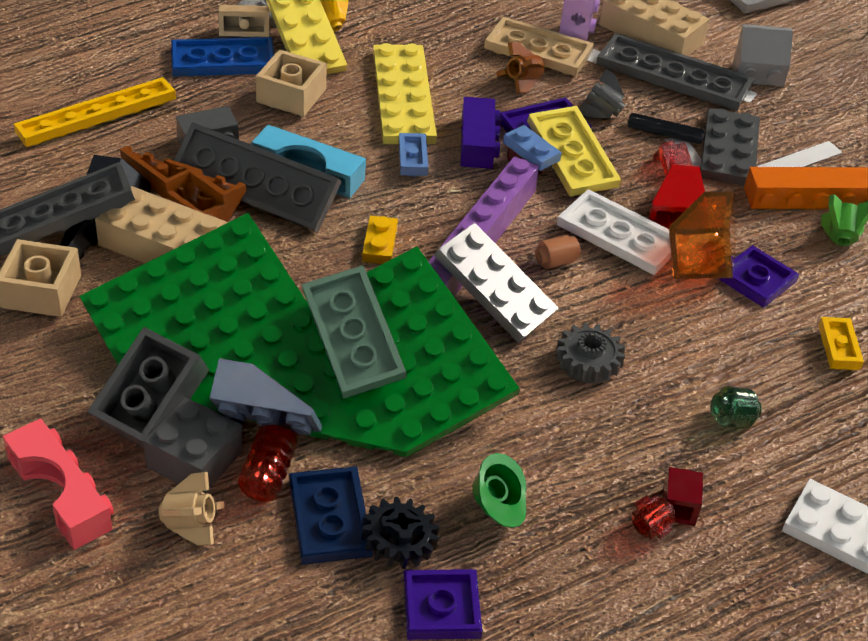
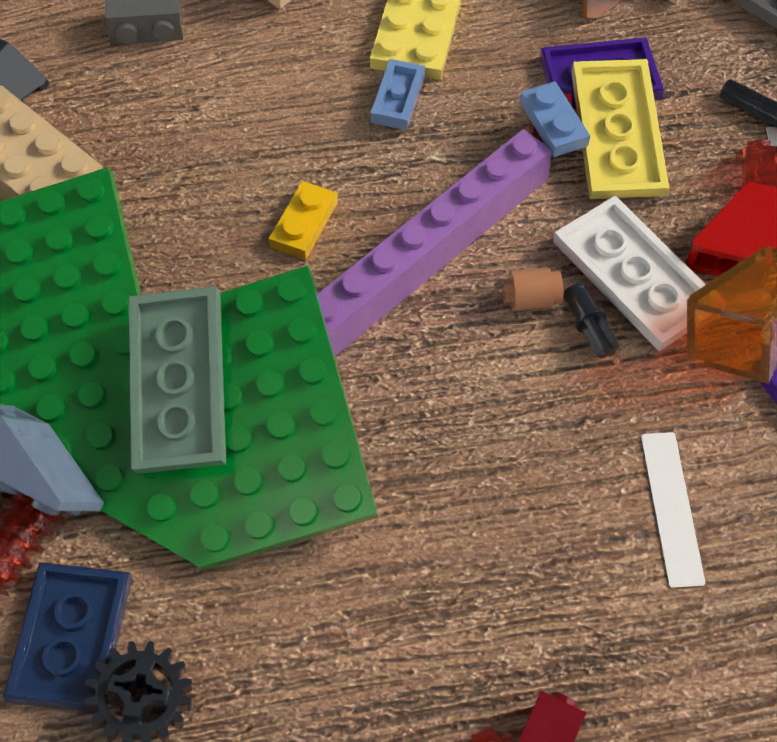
camera: 20 degrees right, 15 degrees up
(187, 184) = (95, 112): dark orange wedge -> none
(271, 181) = (172, 98): dark grey plate -> none
(322, 157) = (225, 57): medium azure arch -> none
(479, 133) = (499, 75): dark purple brick -> none
(496, 282) = (419, 327): plate -> none
(501, 490) = (293, 670): green piece -> none
(590, 354) = (508, 485): dark grey gear -> none
(603, 263) = (591, 320): none -> black axle
(604, 98) = (696, 50): dark grey brick -> none
(696, 356) = (672, 510): none -> white sticker
(735, 407) = (686, 604): clear green head -> none

